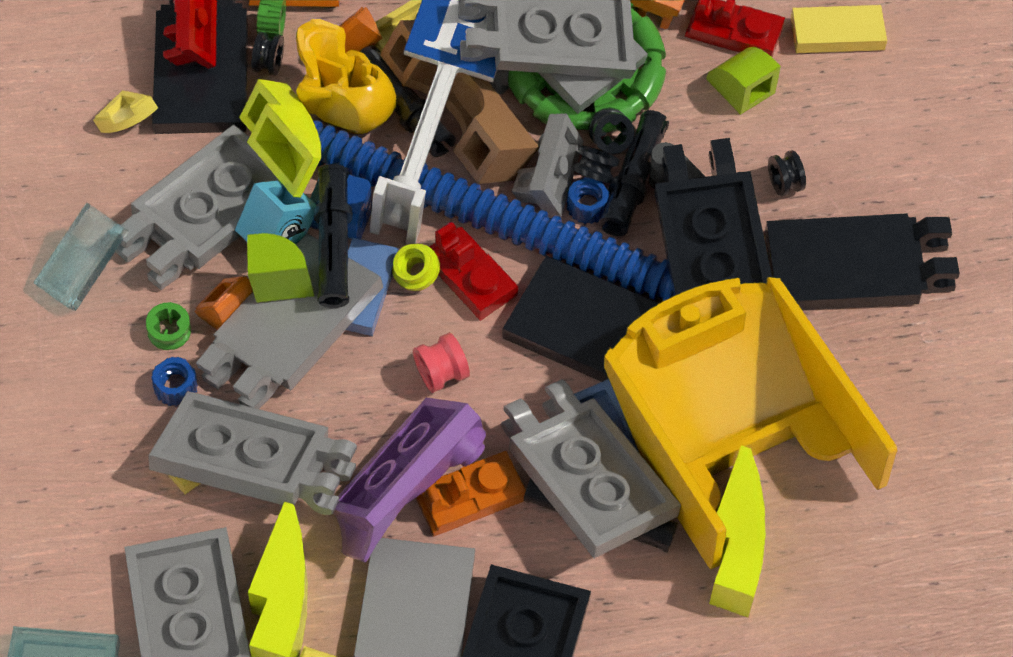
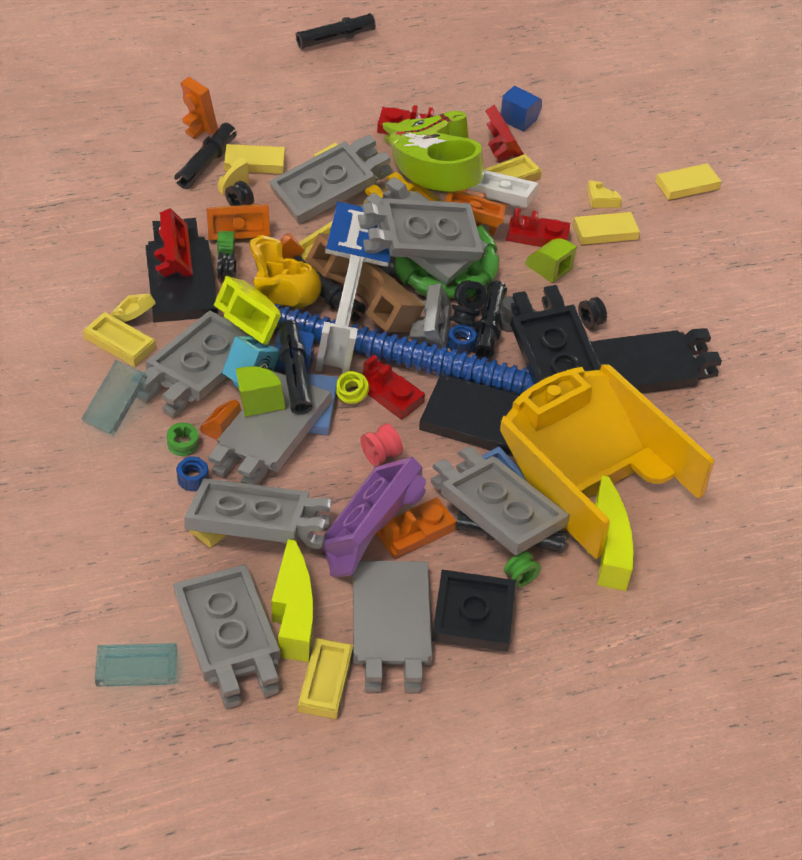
camera: 10 degrees left, 10 degrees down
(102, 159) = (119, 339): none -> light yellow tile
(605, 574) = (522, 568): none -> bright green bush

